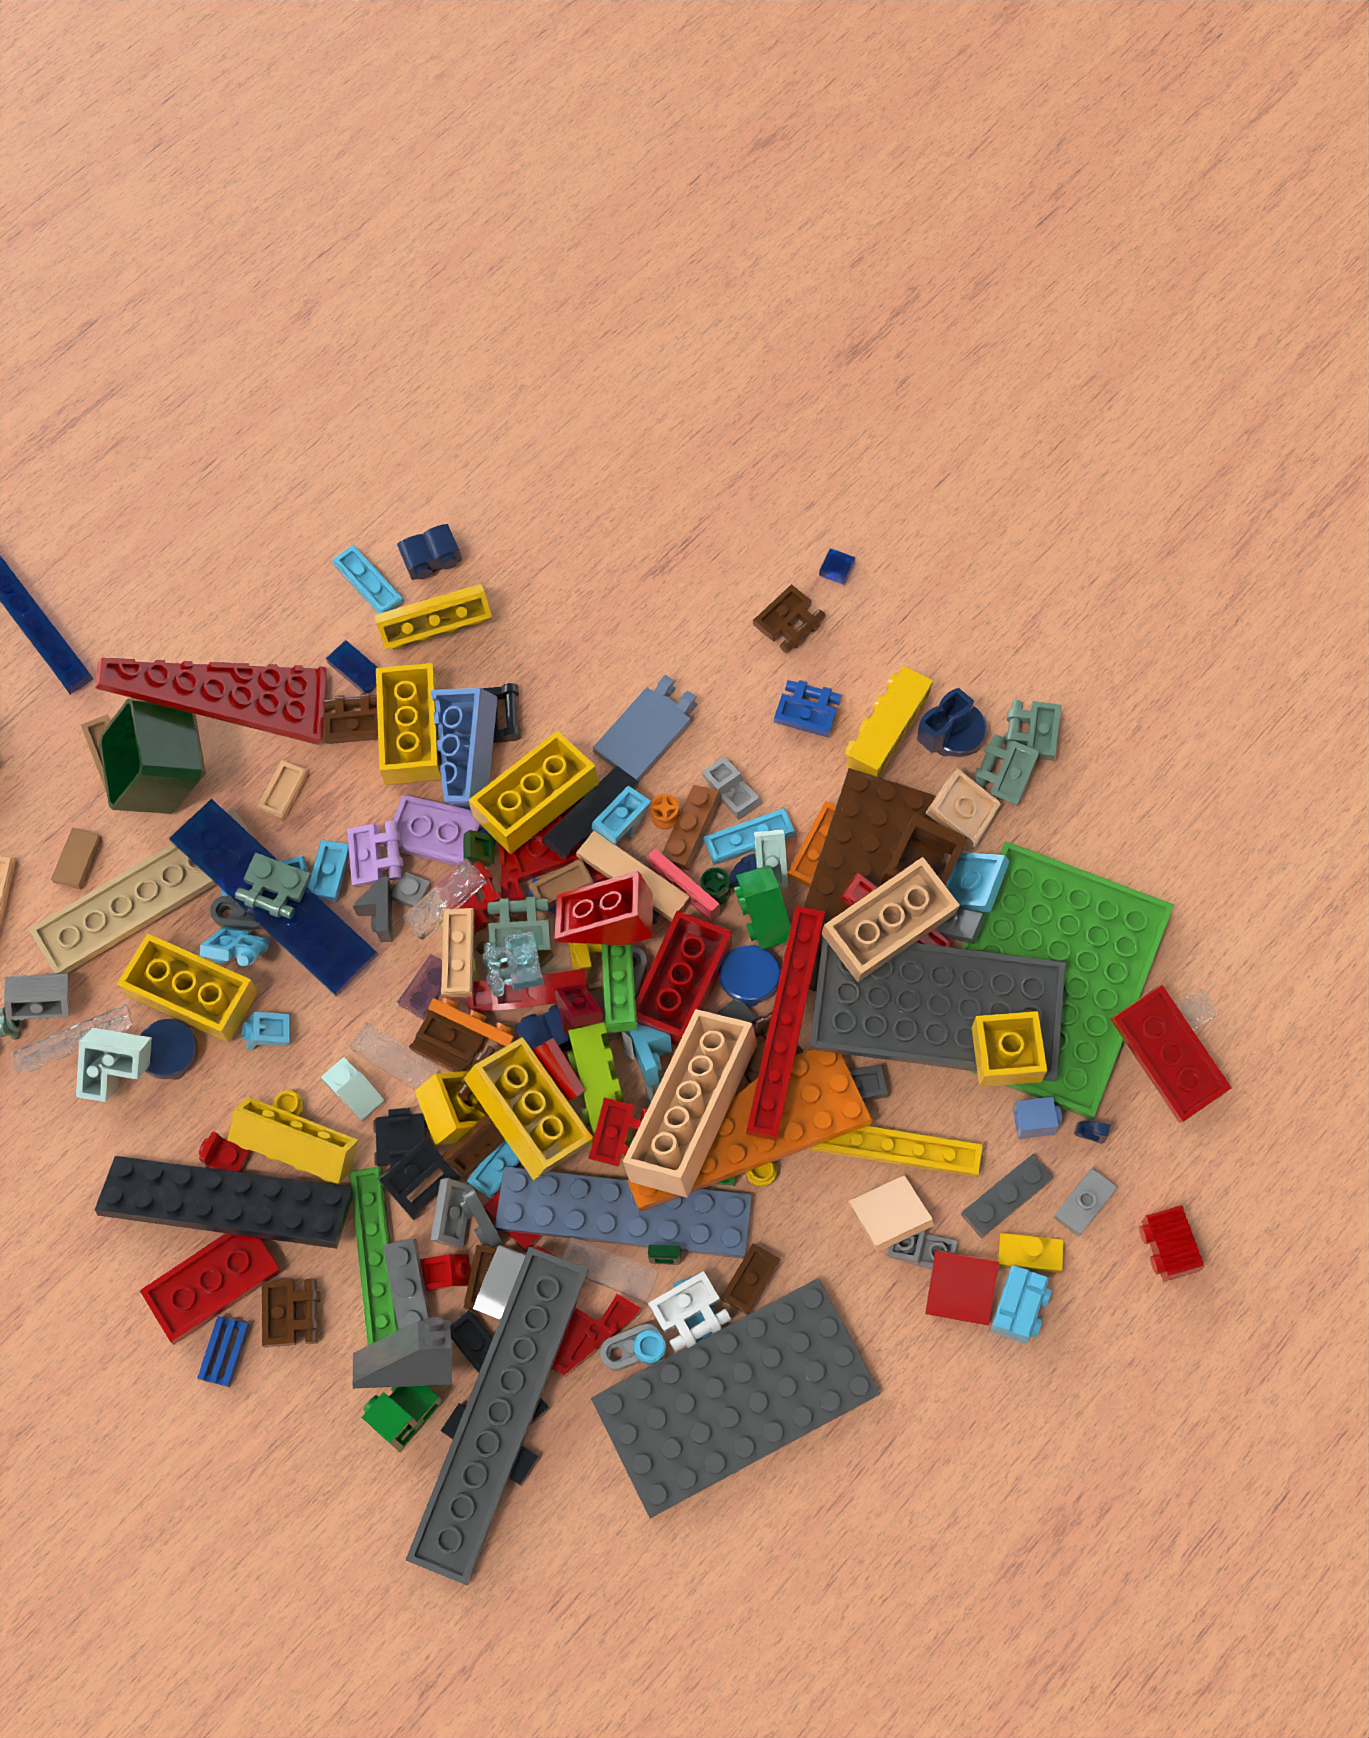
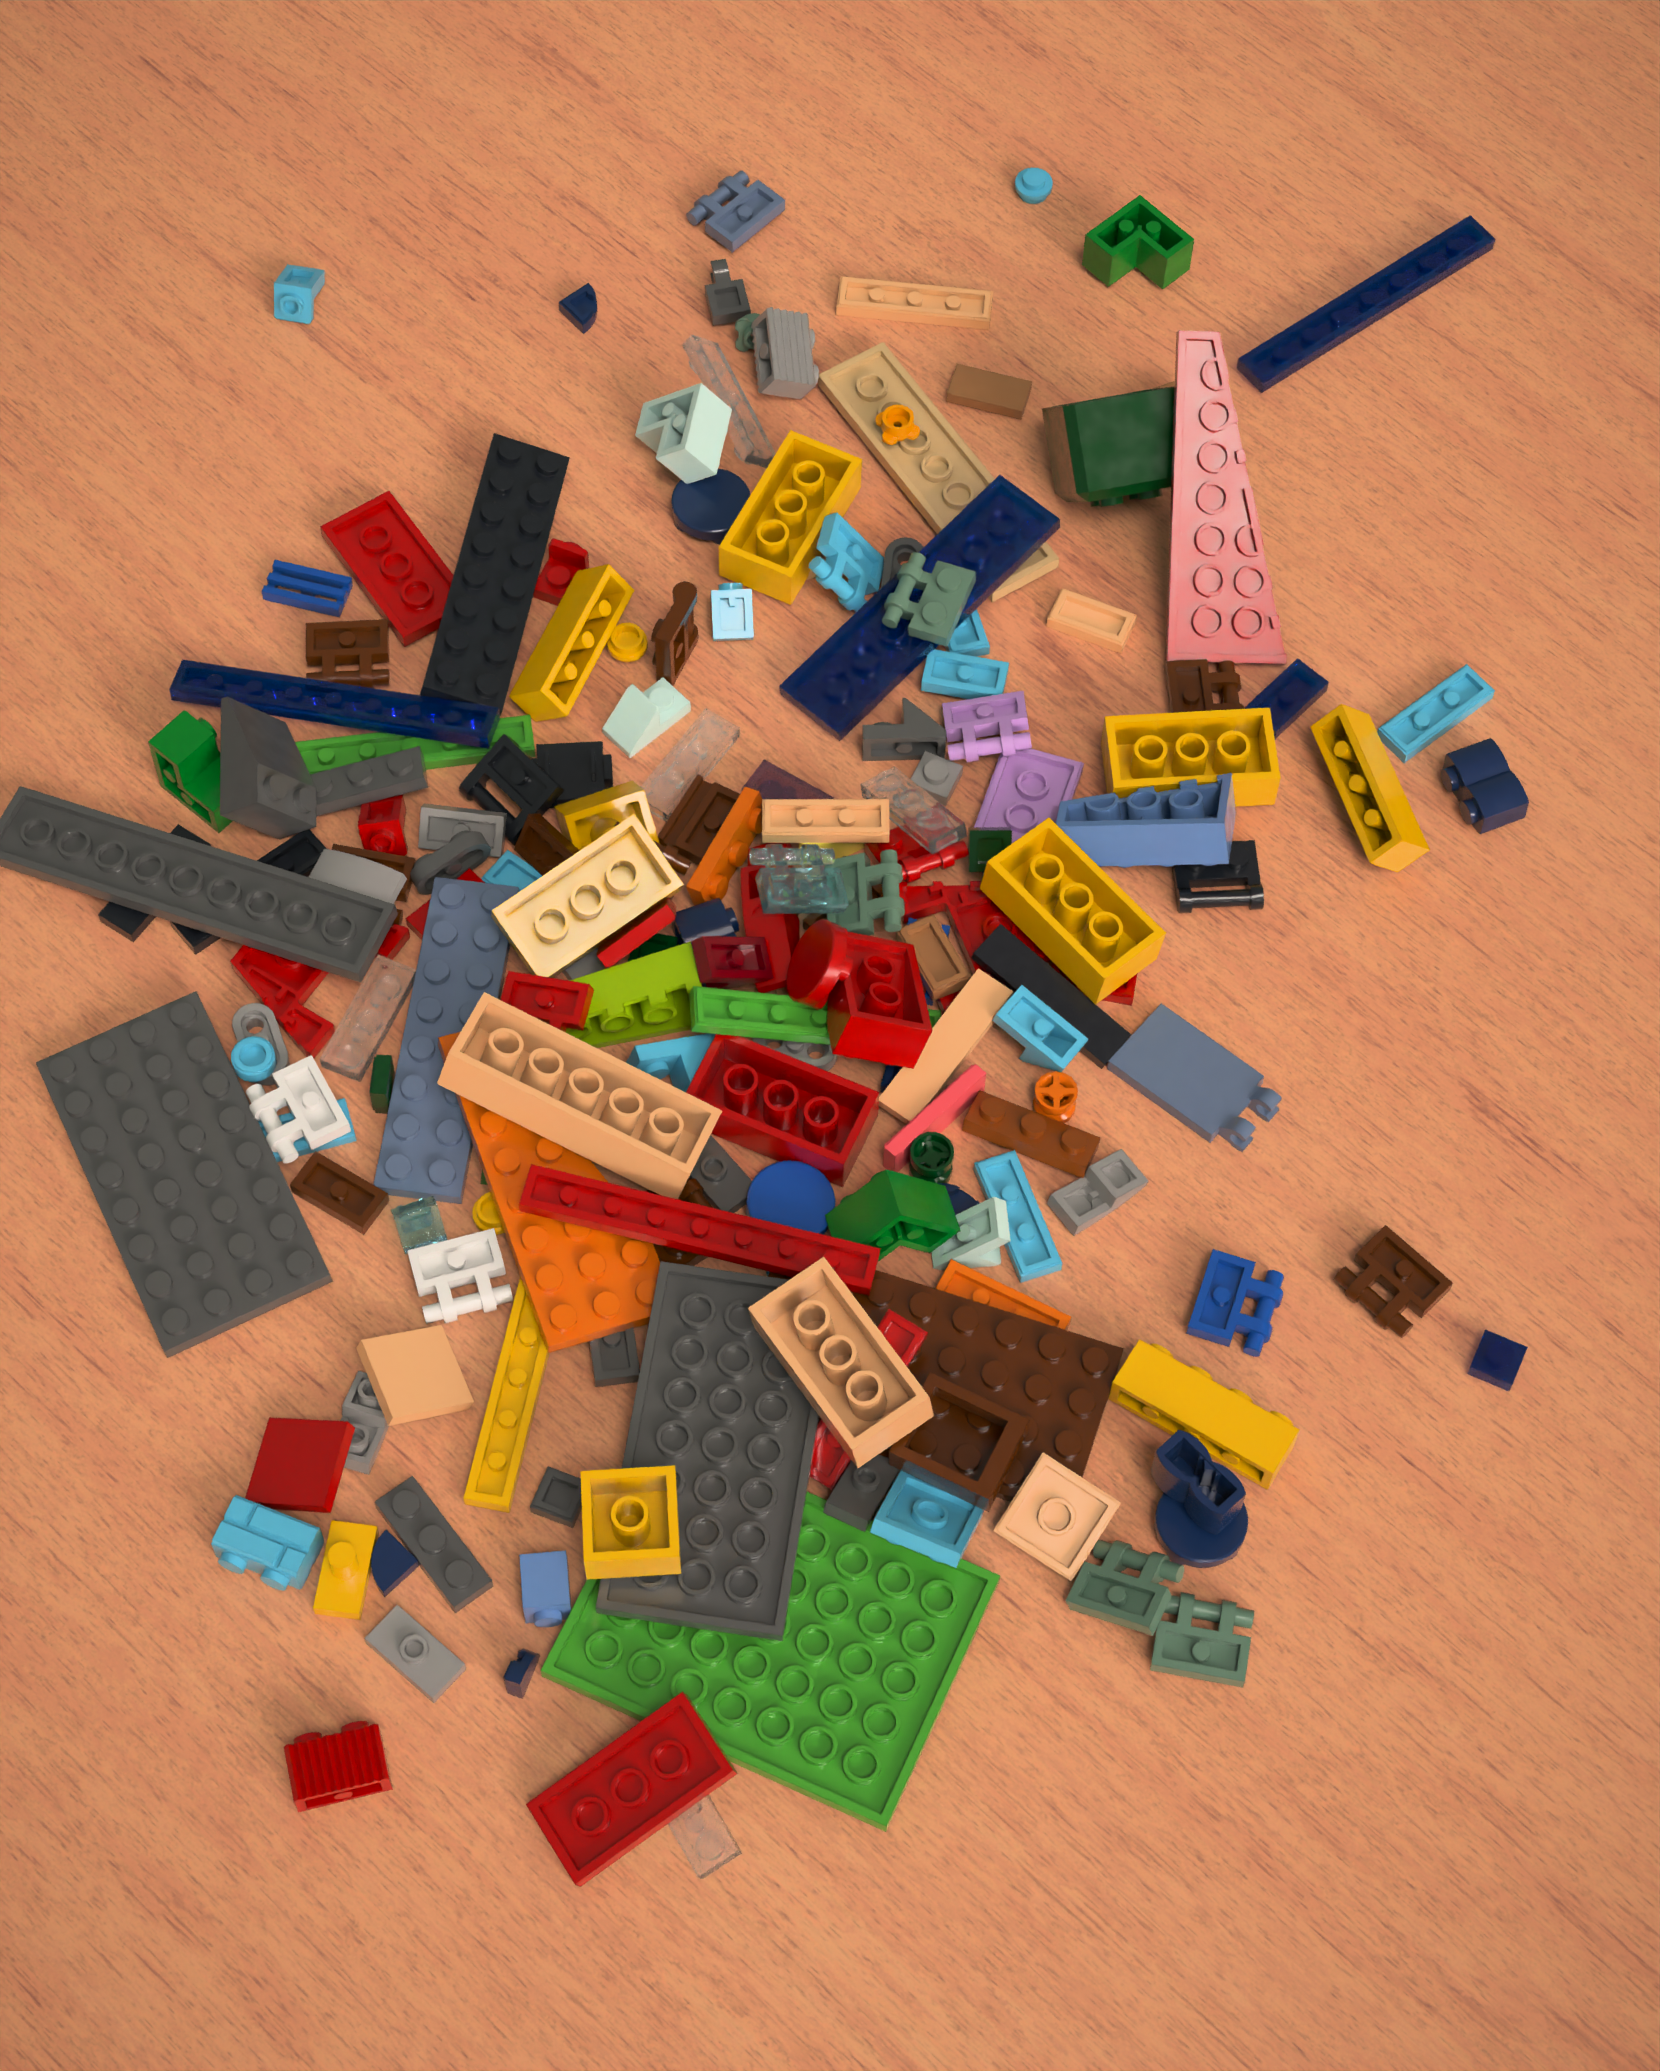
camera: 85 degrees right, 5 degrees down
(110, 906) = (897, 416): none -> light orange plate
(288, 1059) = (676, 634): none -> reddish brown plate
(338, 1318) = (337, 703): none -> clear blue plate
(586, 945) = (818, 963): none -> red tile
(774, 1219) = (419, 1224): none -> clear light blue tile
(802, 1192) = (457, 1264): none -> white plate
(967, 1115) = (558, 1497): none -> dark grey tile
(1023, 1223) = (391, 1563): none -> dark blue tile

